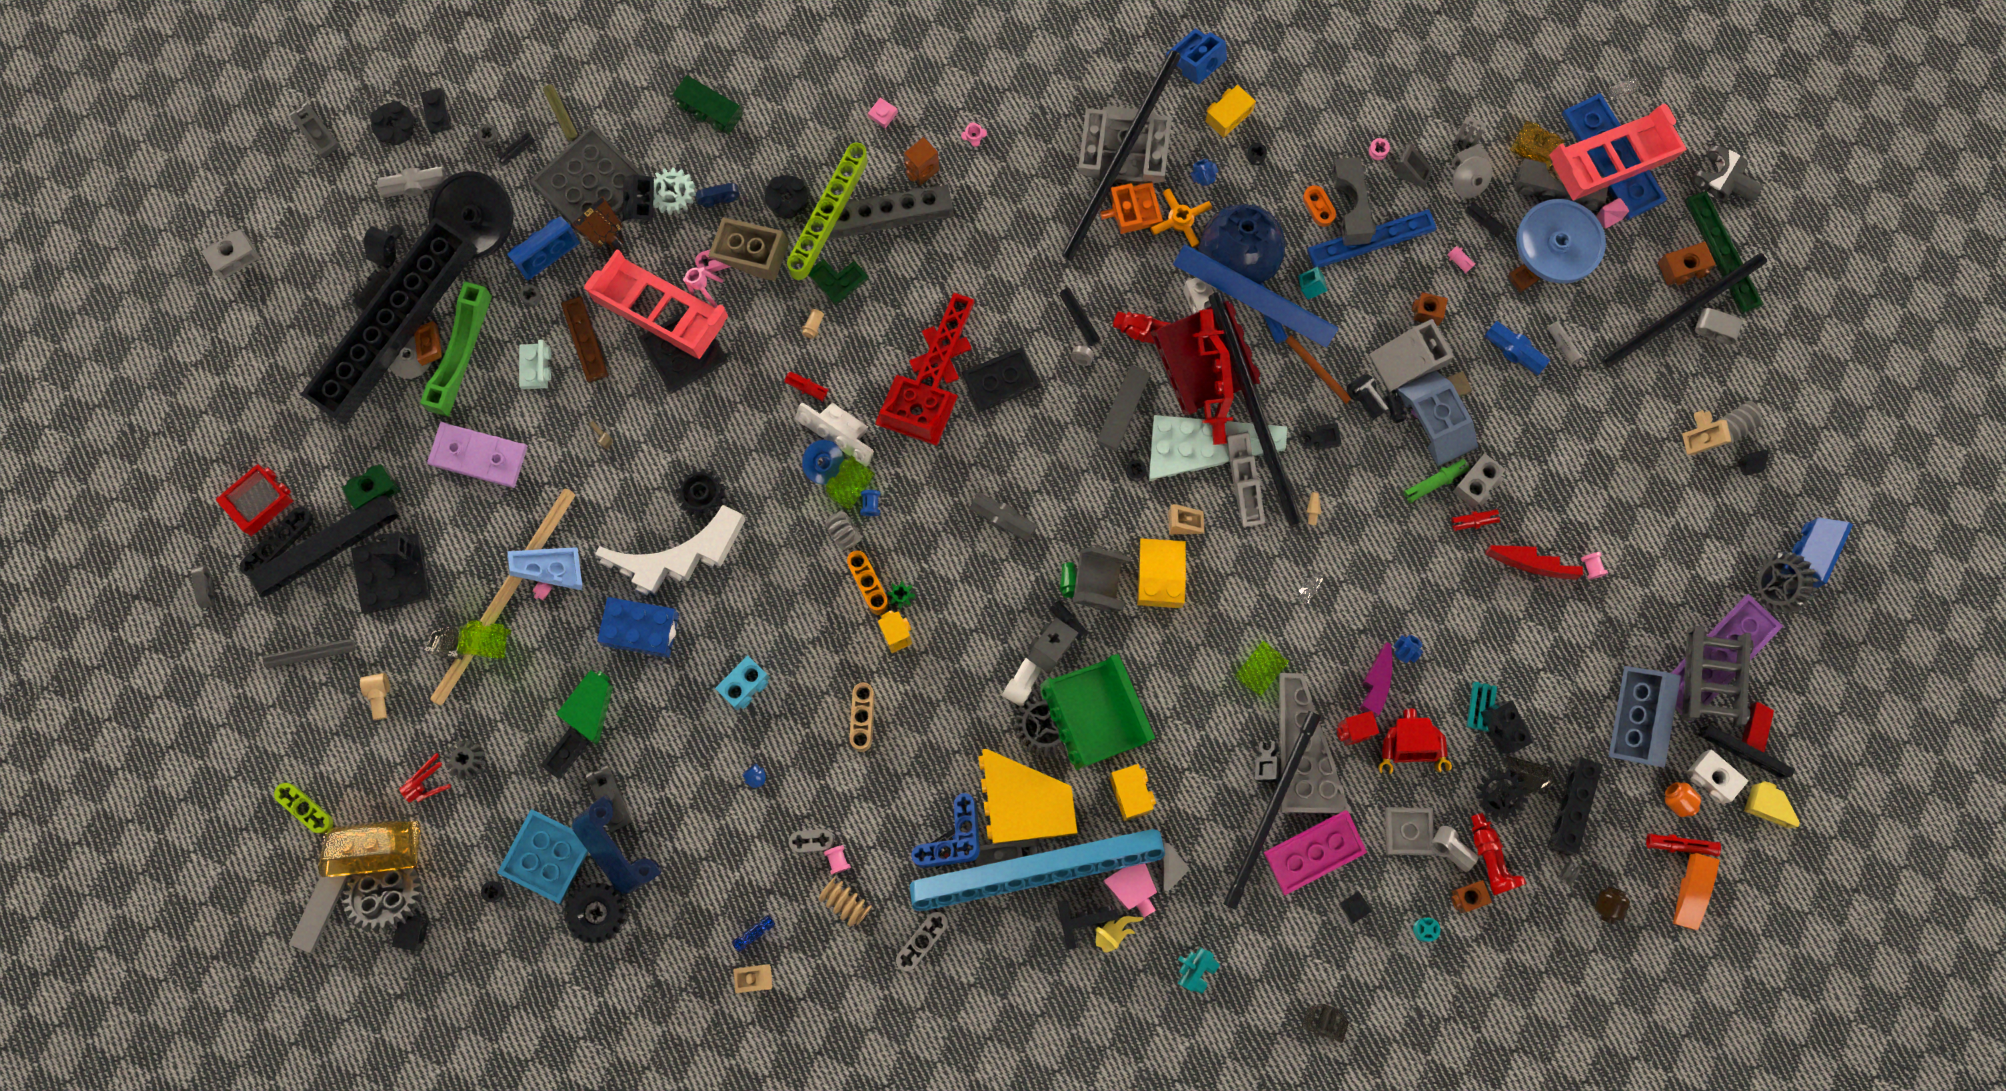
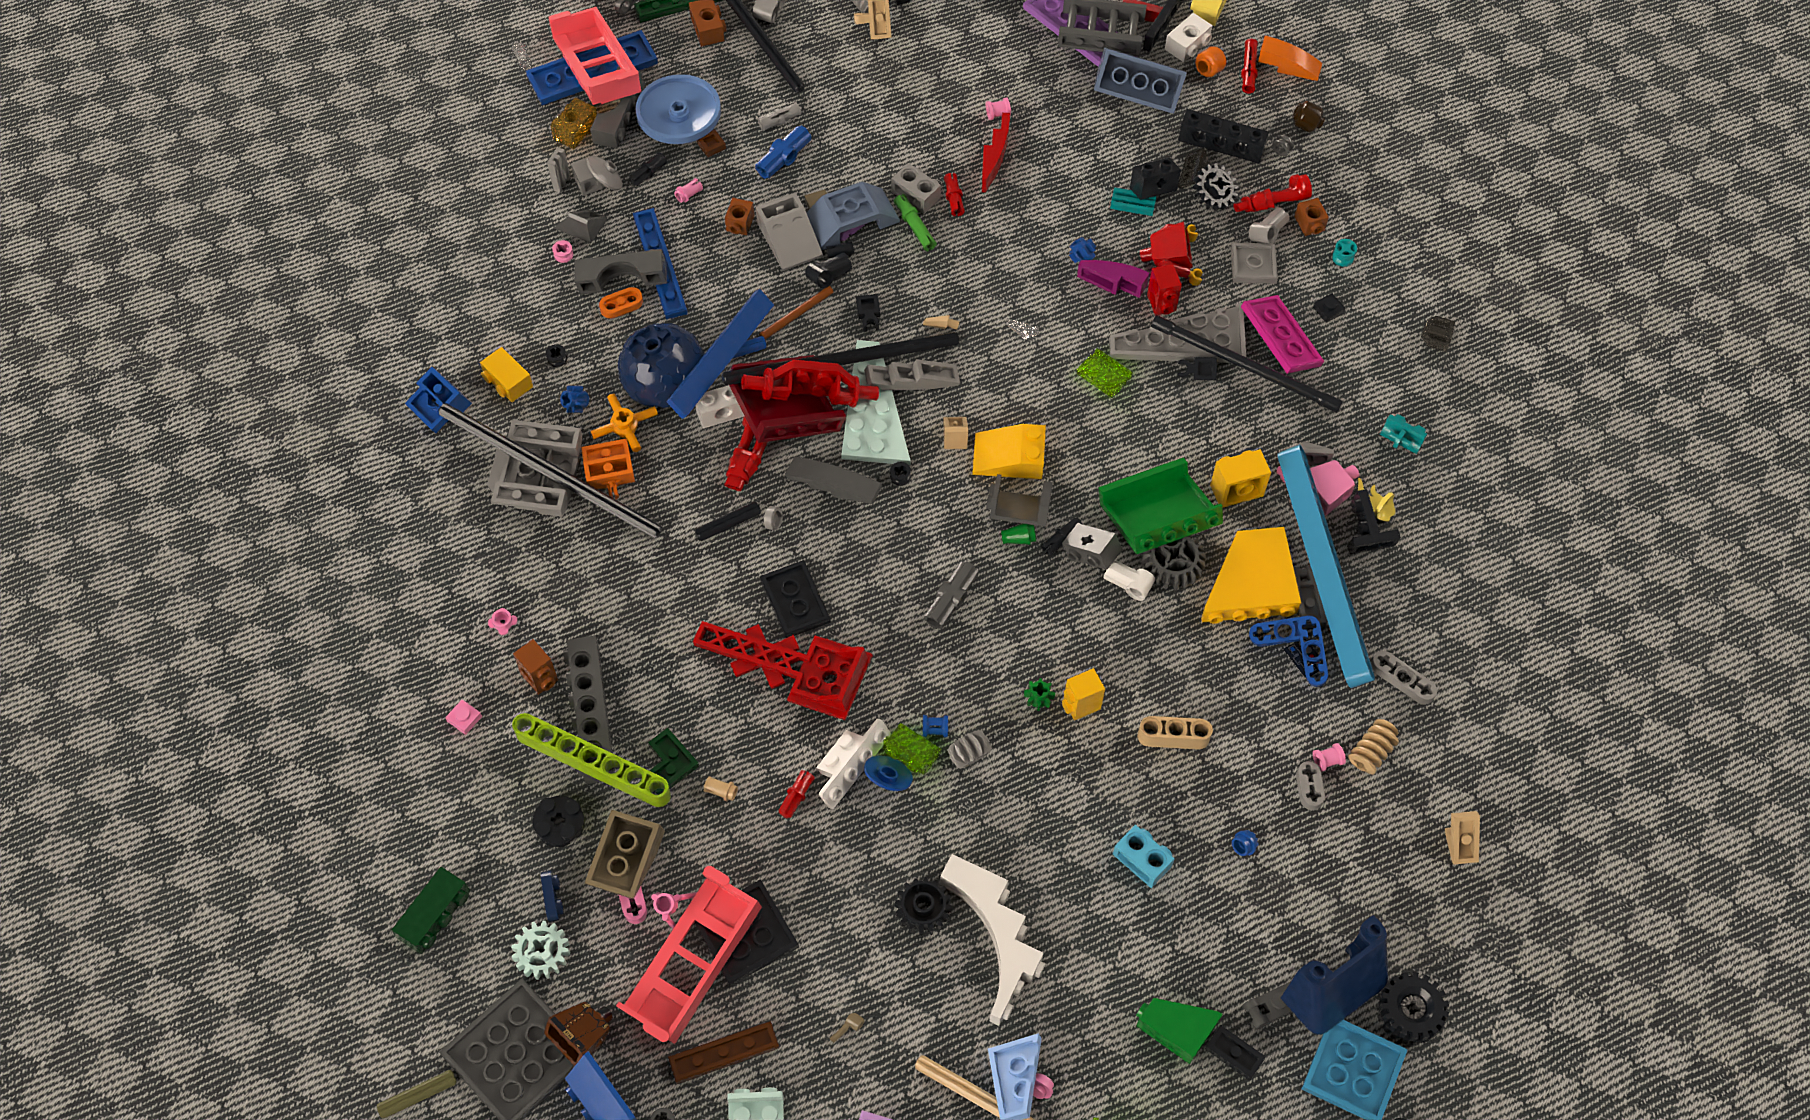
camera: 90 degrees left, 15 degrees down
(638, 198) = (551, 983): black brick -> none
(638, 627) = (1084, 971): blue piece -> none
(753, 933) = (1414, 843): clear blue axle -> none
(862, 573) = (1020, 737): light orange beam -> none
(1312, 283) = (704, 312): teal slope -> none
(1612, 213) = (648, 69): bright pink slope -> none

